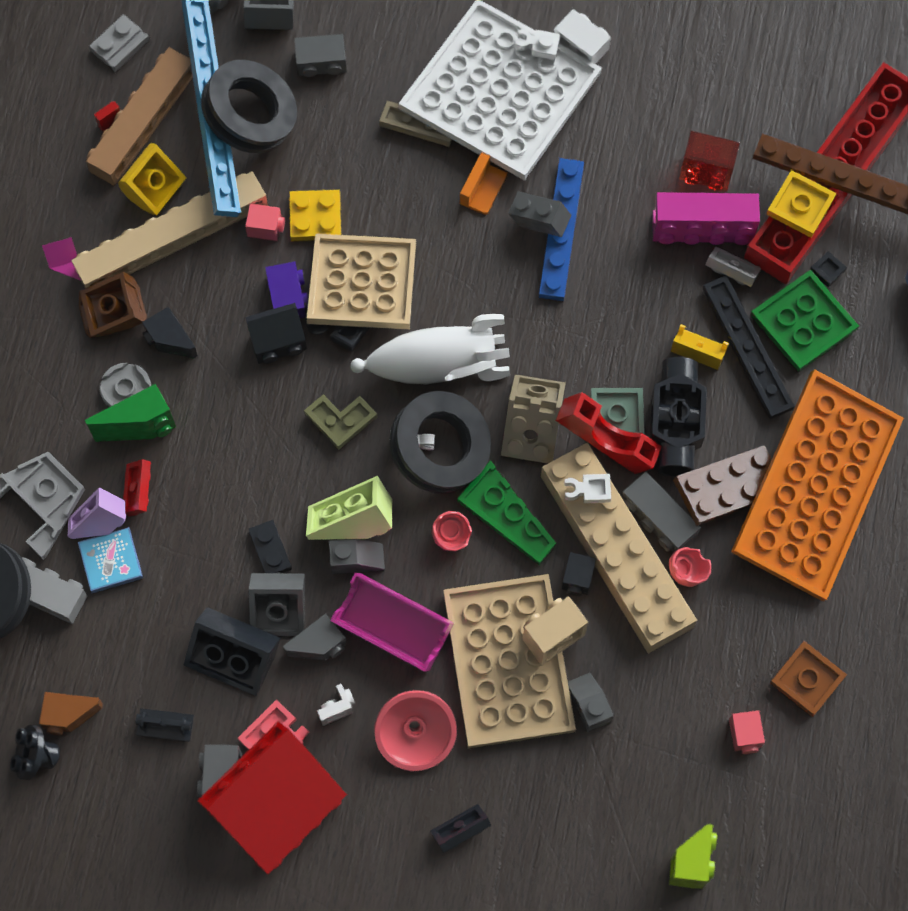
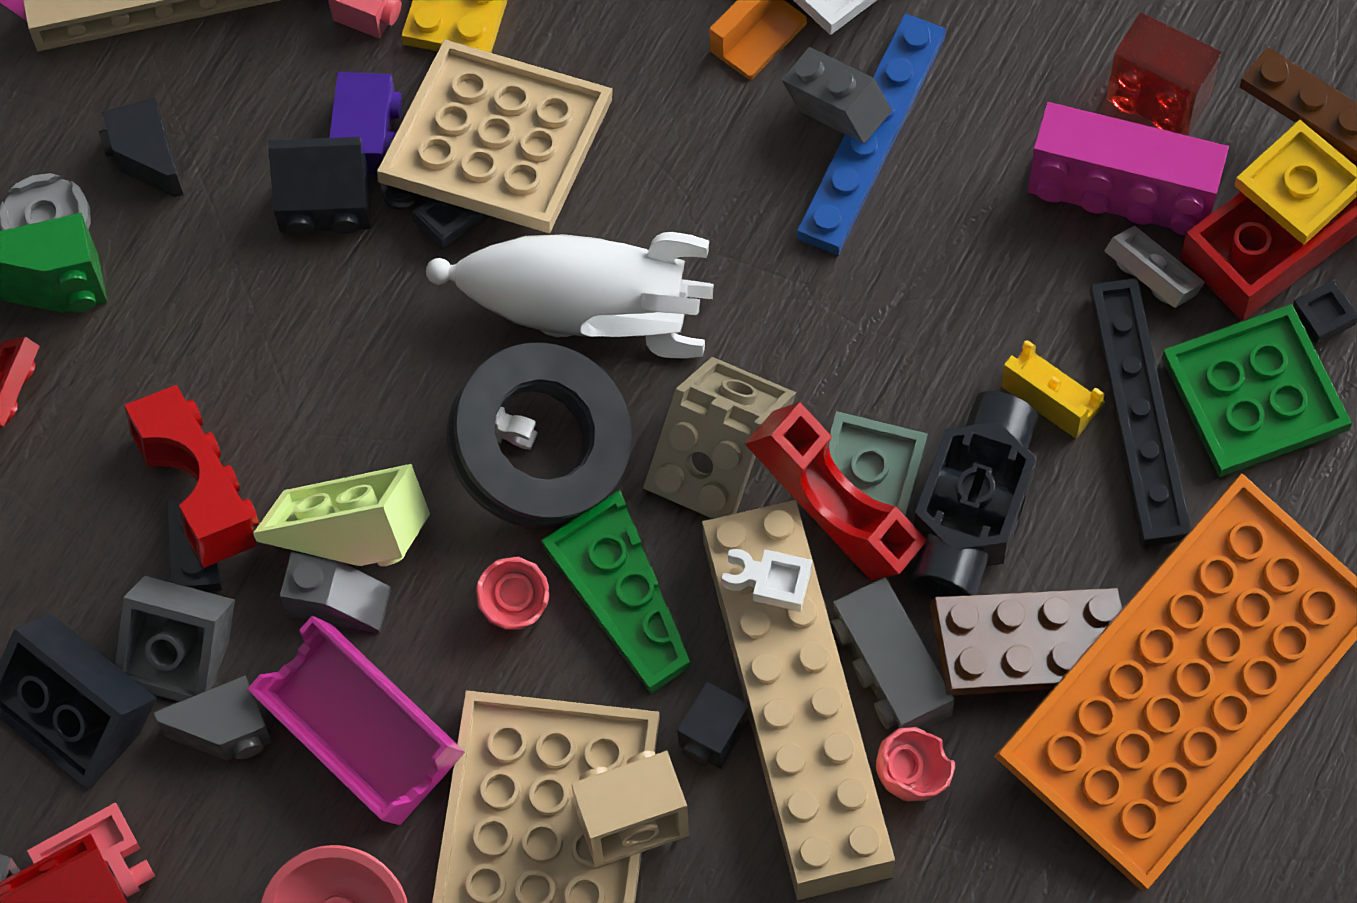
camera: 20 degrees right, 5 degrees down
(111, 306) = (66, 75): reddish brown slope -> none
(238, 492) = (171, 436): none -> red arch
(335, 710) = (211, 849): white bracket -> none
(343, 425) = (384, 368): olive plate -> none

